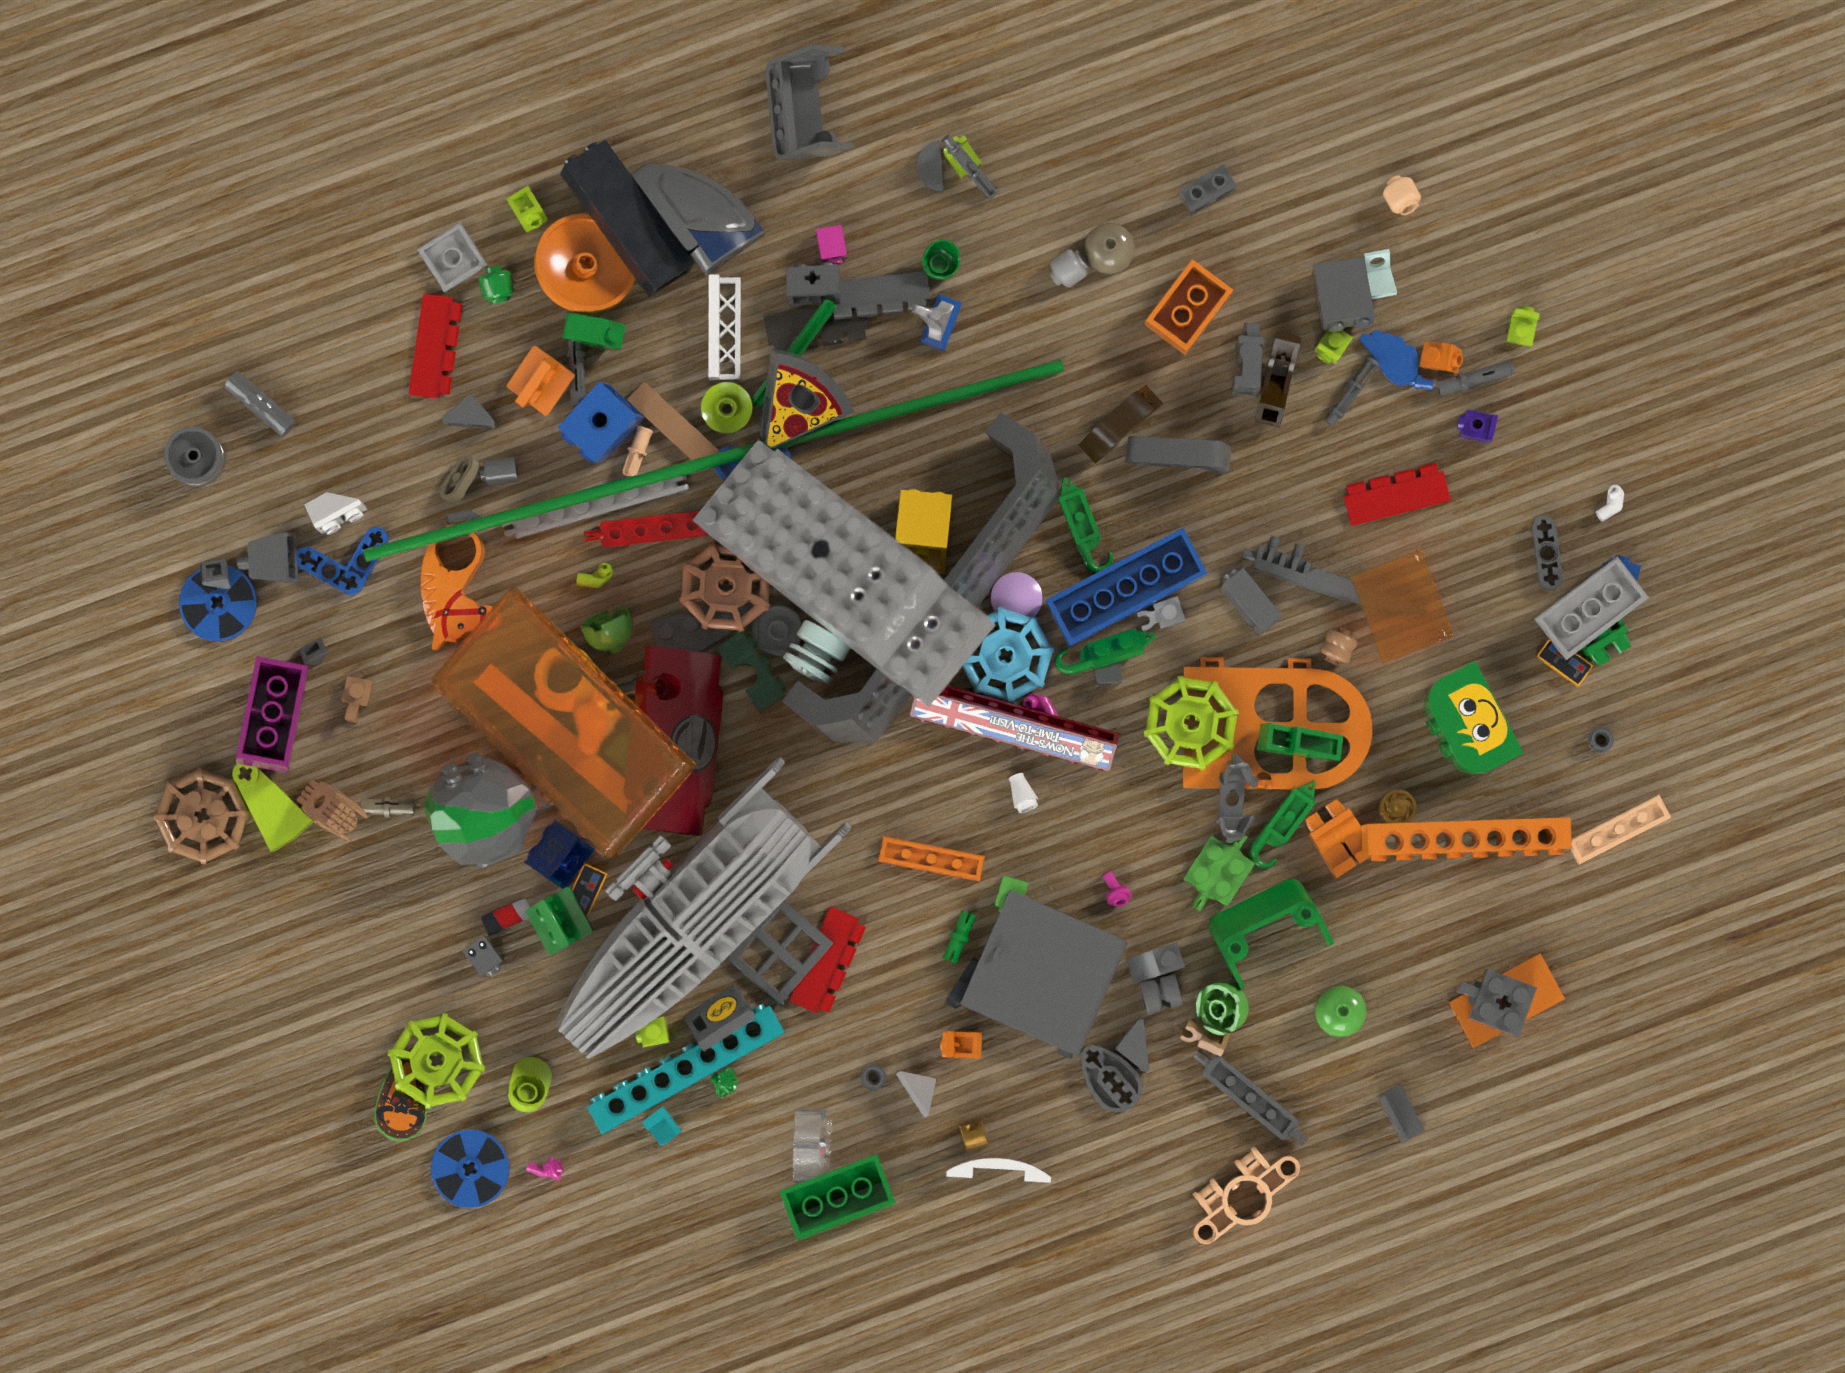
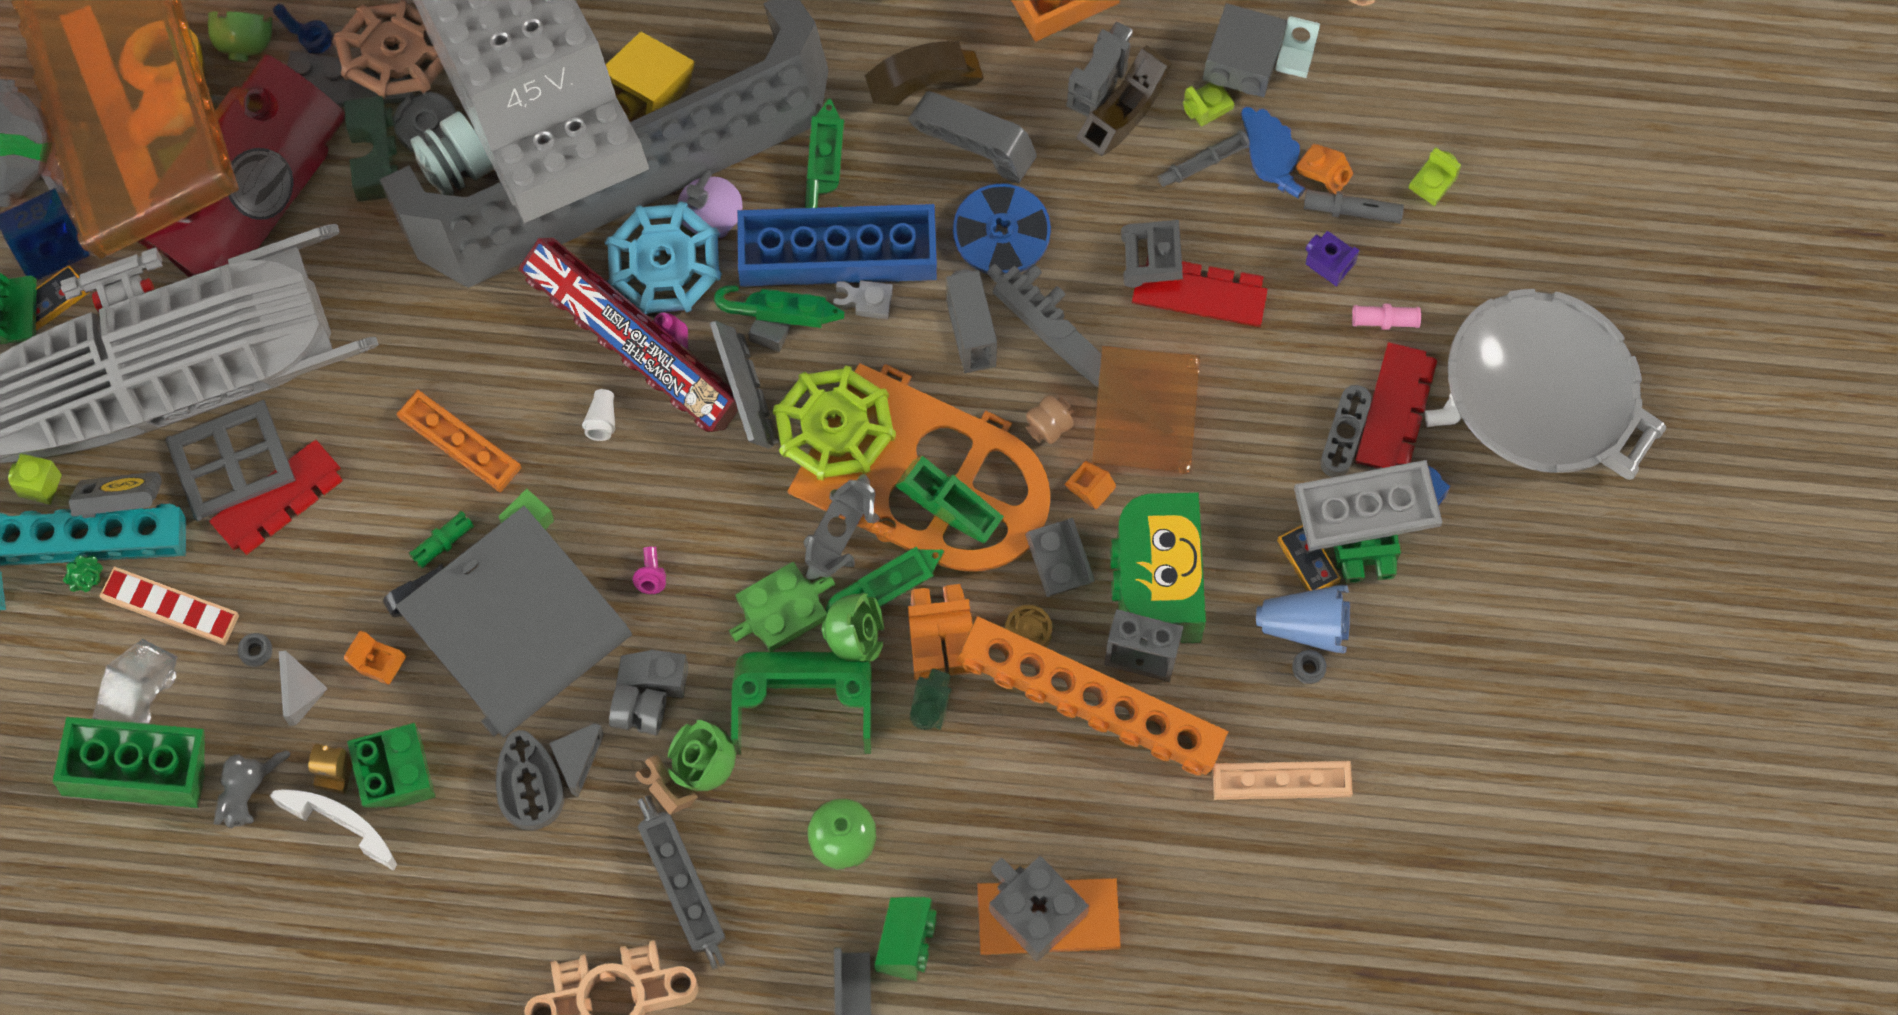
camera: 25 degrees right, 15 degrees down
(655, 603) = (313, 36): none -> clear blue plate
(796, 1074) = (169, 606): none -> tile
(917, 1174) = (240, 781): none -> dark grey animal
(1007, 598) = (698, 196): none -> dark grey hand
(1015, 1116) = (391, 768): none -> green slope
(1107, 718) = (743, 383): none -> dark grey windscreen
(1233, 494) = (1012, 208): none -> blue piece
(1280, 868) = (853, 628): none -> bright green cylinder
(1358, 481) = (1163, 252): none -> dark grey plate
(1358, 894) = (931, 701): none -> clear green hips
(1387, 677) = (1091, 484): none -> orange slope
(1394, 744) = (1059, 557): none -> dark grey plate
(1421, 1064) = (903, 938): none -> green slope
(1485, 785) = (1143, 639): none -> dark grey window
(1536, 453) = (1386, 316): none -> bright pink pin
(1569, 516) = (1391, 407): none -> red windscreen
(1586, 707) = (1308, 618): none -> medium blue cone
(1675, 454) = (1549, 384): none -> light grey dish

